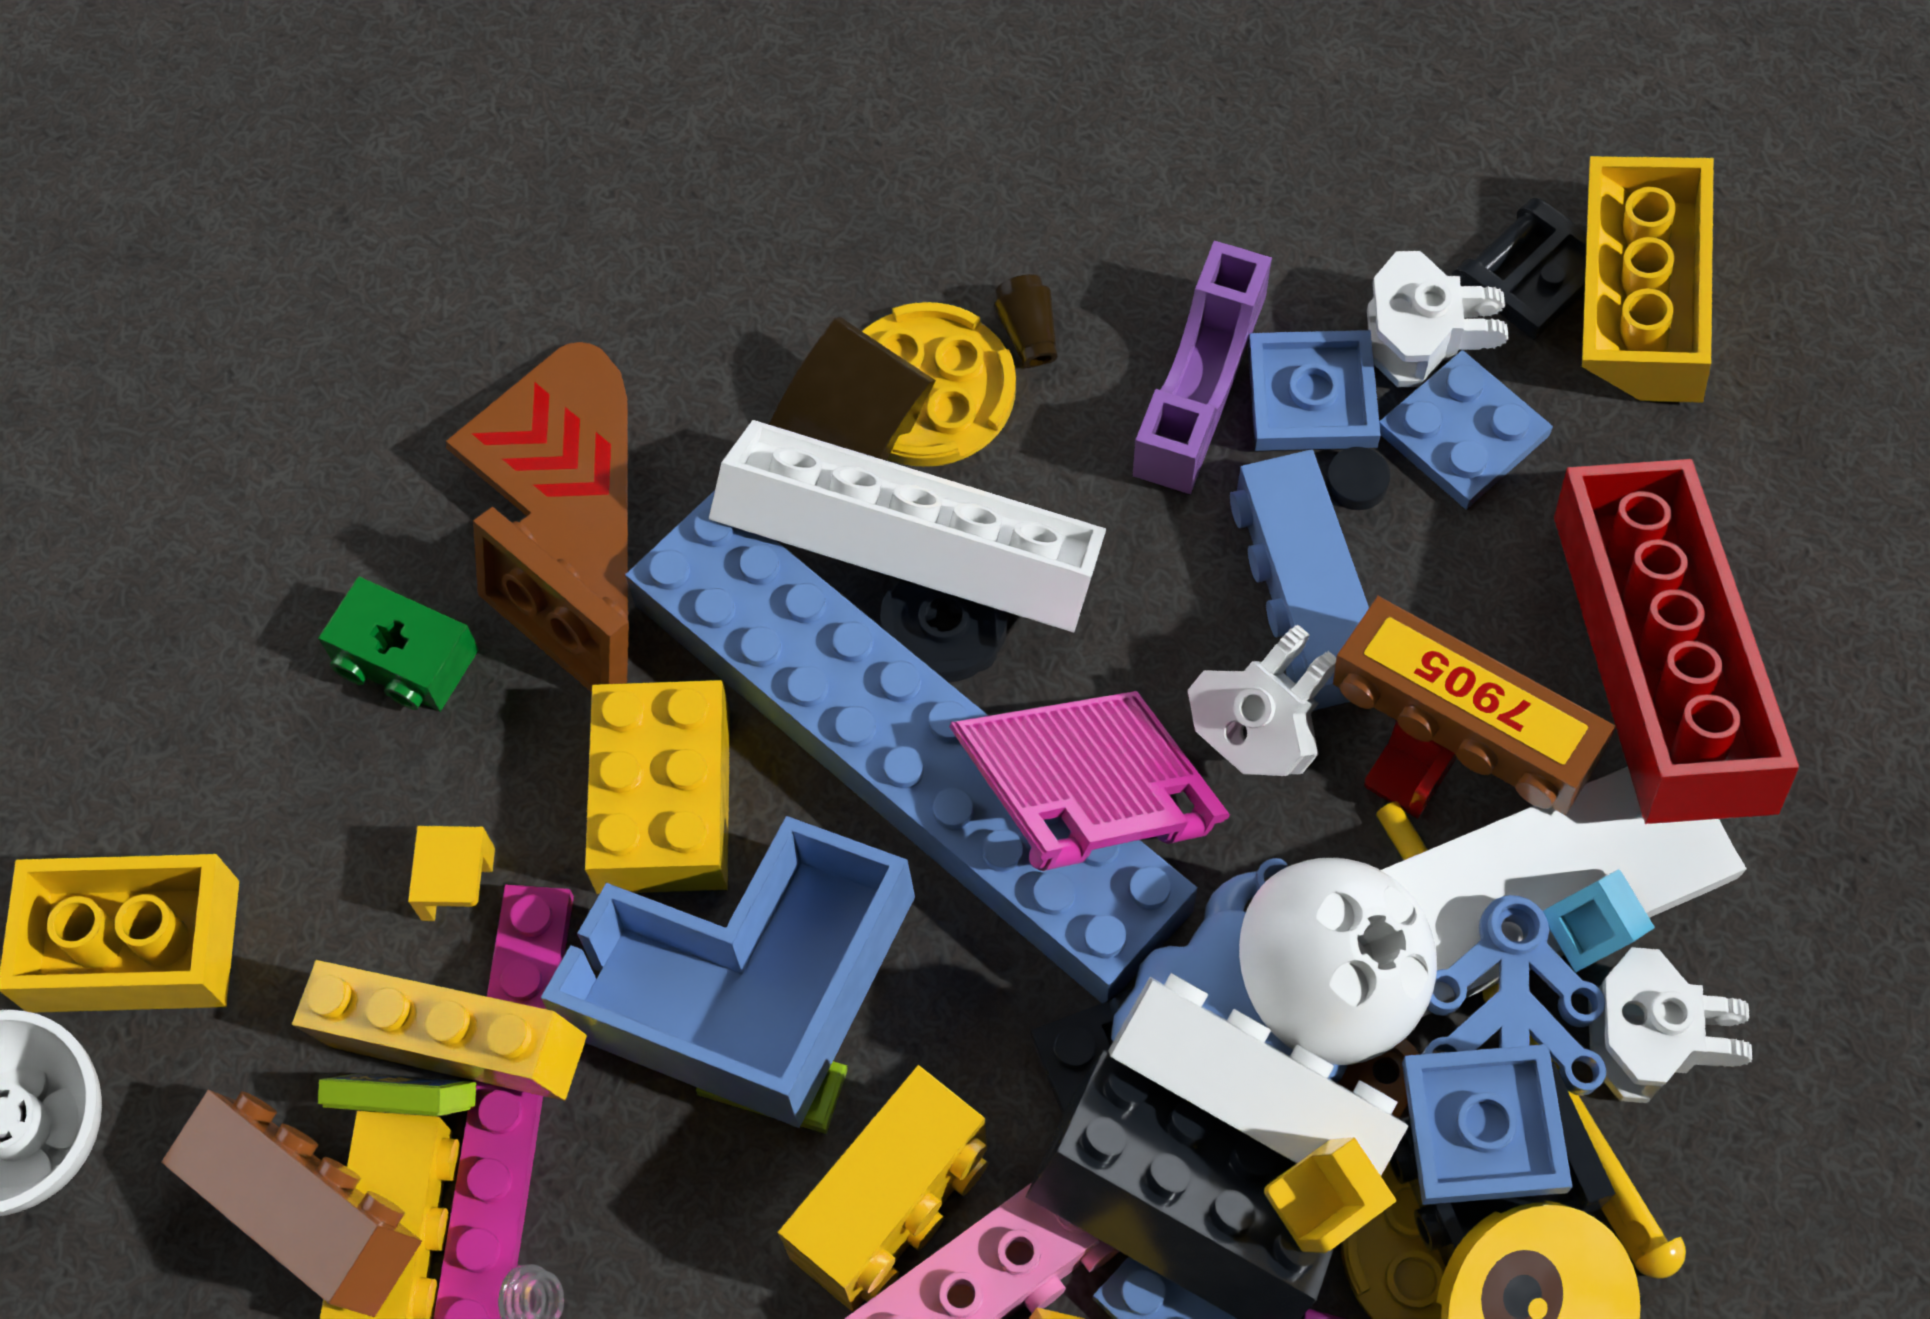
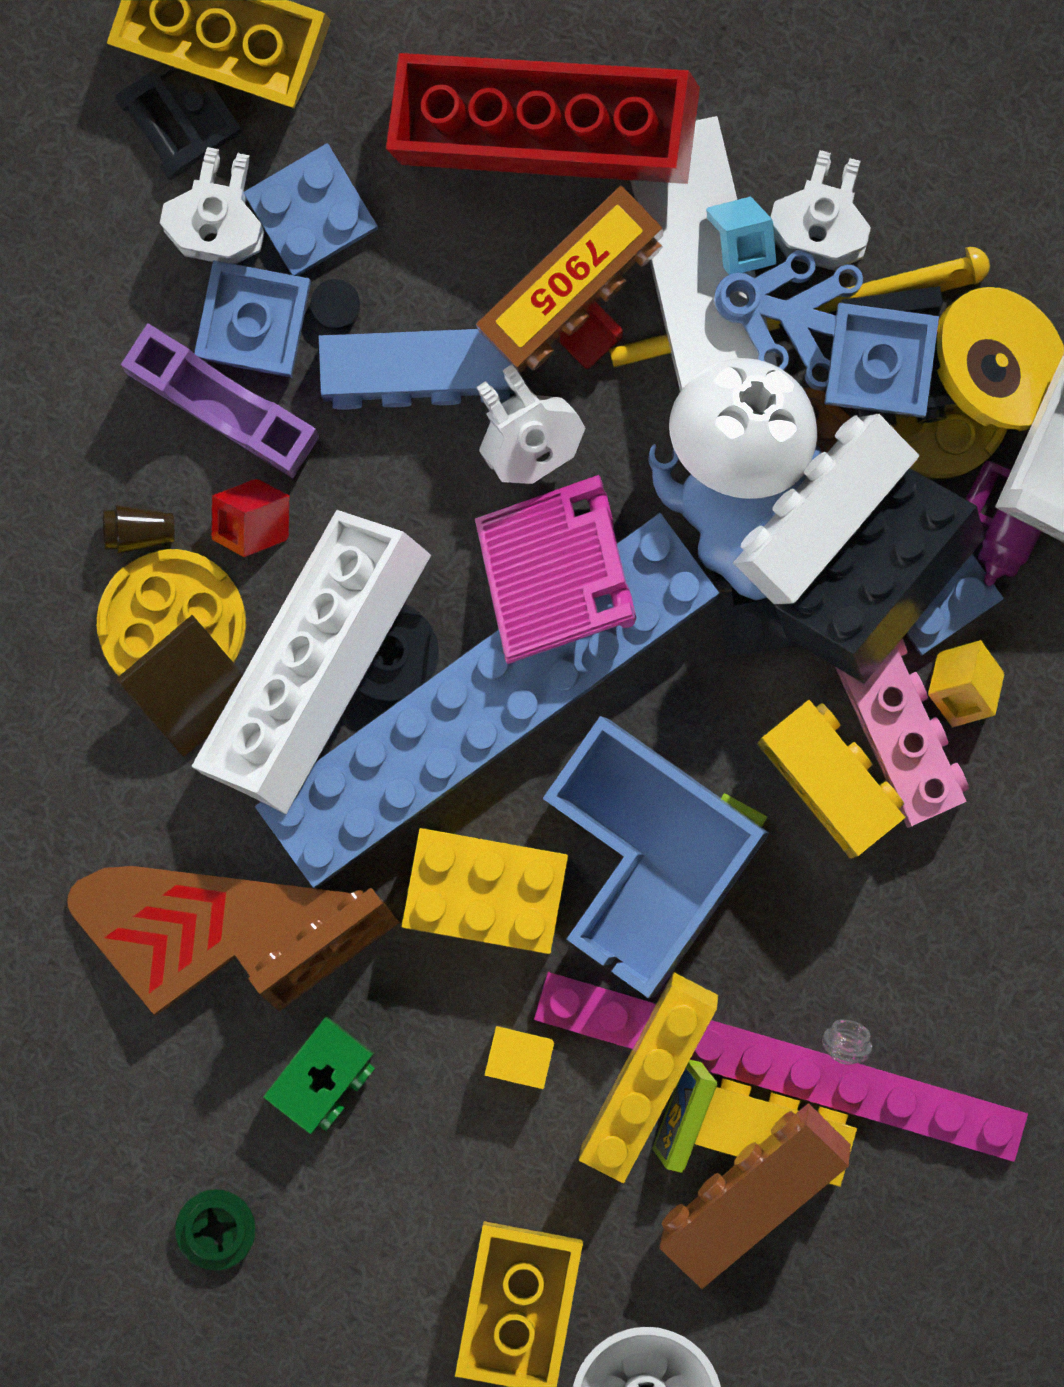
camera: 80 degrees left, 20 degrees up
(174, 566) = (194, 1217): none -> dark green gear
(1072, 434) = (250, 517): none -> red panel
(1329, 1195) = (919, 480): yellow panel -> none

